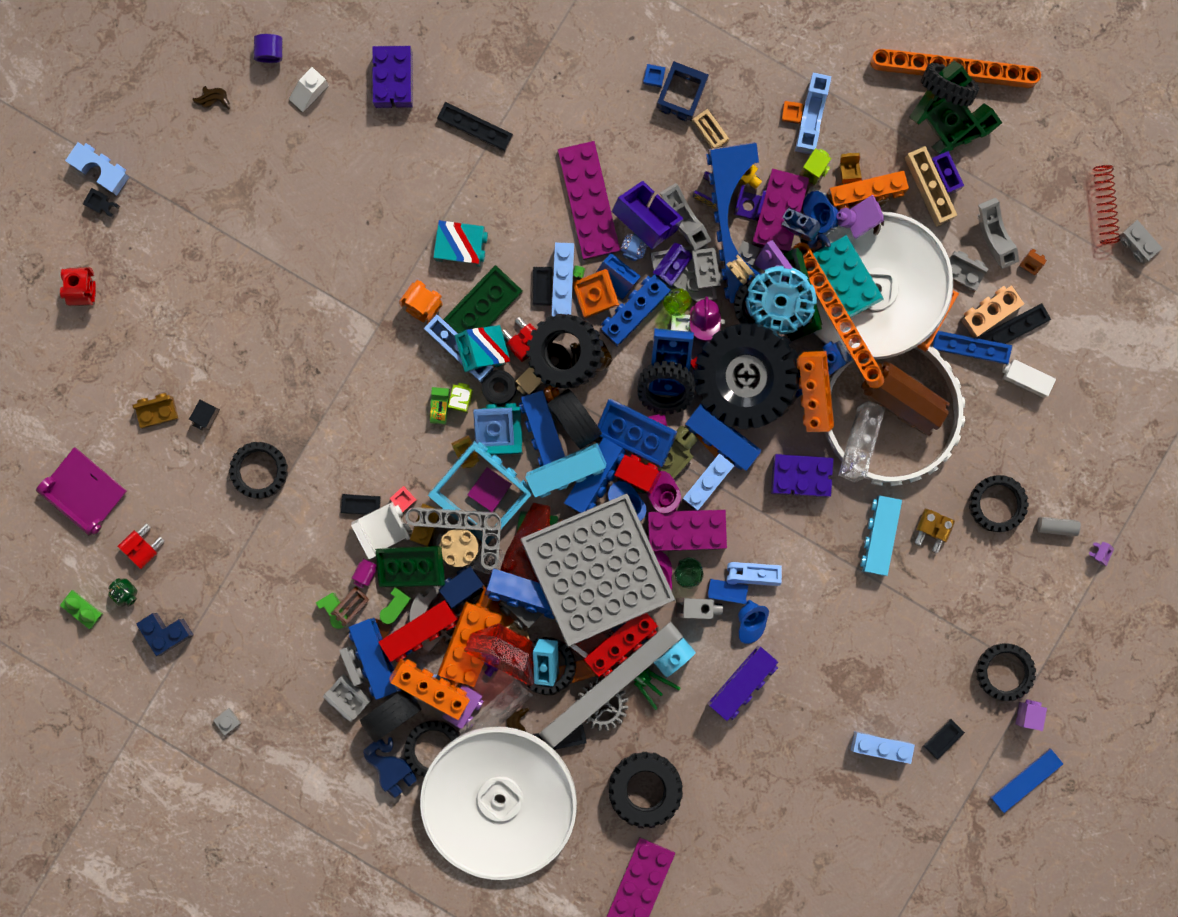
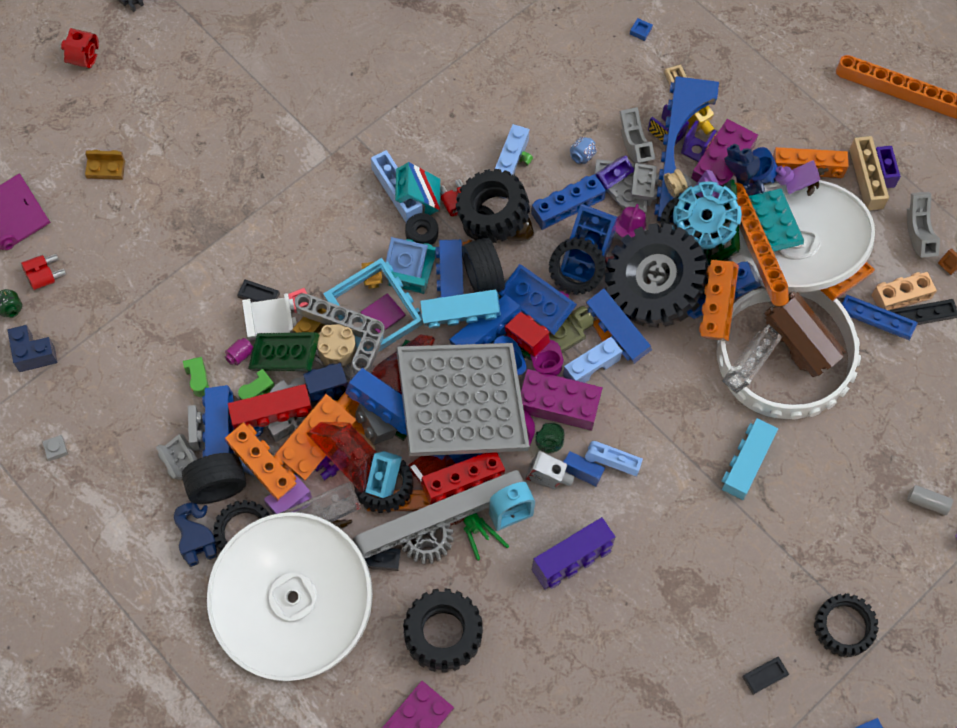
camera: 10 degrees right, 20 degrees down
(203, 415) = (146, 179): black brick -> none
(235, 467) = (169, 220): black tyre -> none
(340, 616) = (200, 377): reddish brown tile -> none
(421, 302) = (375, 139): orange brick -> none
(439, 405) = (362, 229): bright green leg -> none
(460, 242) = (427, 105): panel -> none
(460, 397) = (383, 229): brick -> none
(475, 126) = (472, 26): black tile -> none
(484, 302) = (438, 157): dark green tile -> none
(528, 382) = (452, 230): tan brick -> none
(542, 286) = (489, 158): black tile -> none
(588, 200) = (553, 107): magenta plate -> none
(595, 293) = (537, 177): orange tile -> none
(621, 275) = (559, 170): blue panel -> none
(648, 223) = (592, 116): dark purple piece -> none
(677, 302) = (609, 202): clear neon green head -> none
(689, 74) = (671, 34): dark blue window -> none
(752, 622) = (599, 500): blue piece -> none
(792, 112) = (756, 87): orange tile -> none
(802, 474) = (691, 382): dark purple piece -> none
(812, 113) = (775, 90): light blue arch -> none
(816, 166) = (767, 127): lime brick -> none
(850, 168) = (798, 138): pearl gold bracket -> none
(882, 747) = (709, 665): light blue arch -> none
(934, 526) = (805, 465): pearl gold piece -> none
(946, 89) = (906, 89): black tyre -> none
(953, 122) = (900, 116): dark green wedge -> none
(966, 271) = (887, 252): light grey bracket -> none
(1019, 493) = (885, 445): black tyre -> none
(1028, 378) = (926, 358): white brick -> none
(1031, 715) = (864, 672): medium lavender brick -> none

